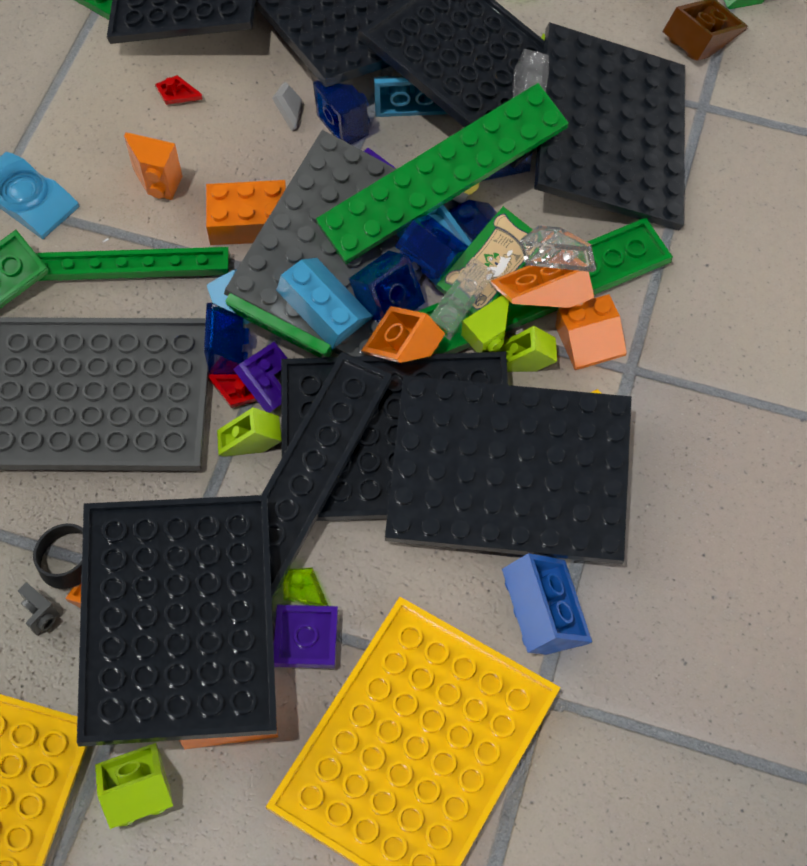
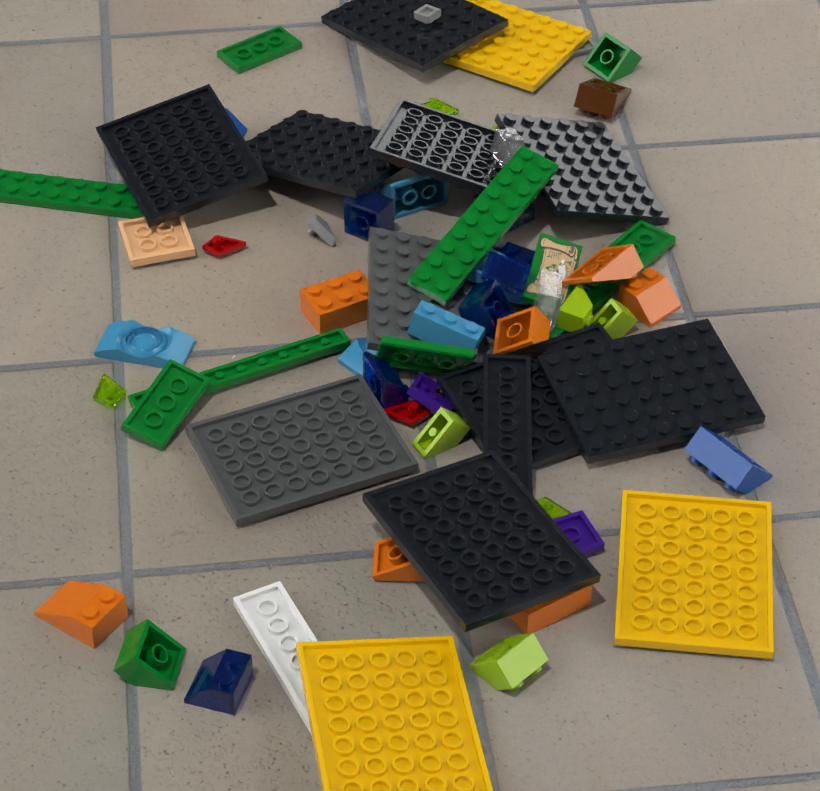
camera: 25 degrees left, 20 degrees down
(41, 609) = (356, 584): dark grey bracket -> none
(64, 580) = (360, 564): black tyre -> none
(112, 65) = (155, 244): none -> light nougat plate
(155, 164) = (244, 291): orange slope -> none
(557, 249) = (604, 241): clear slope -> none

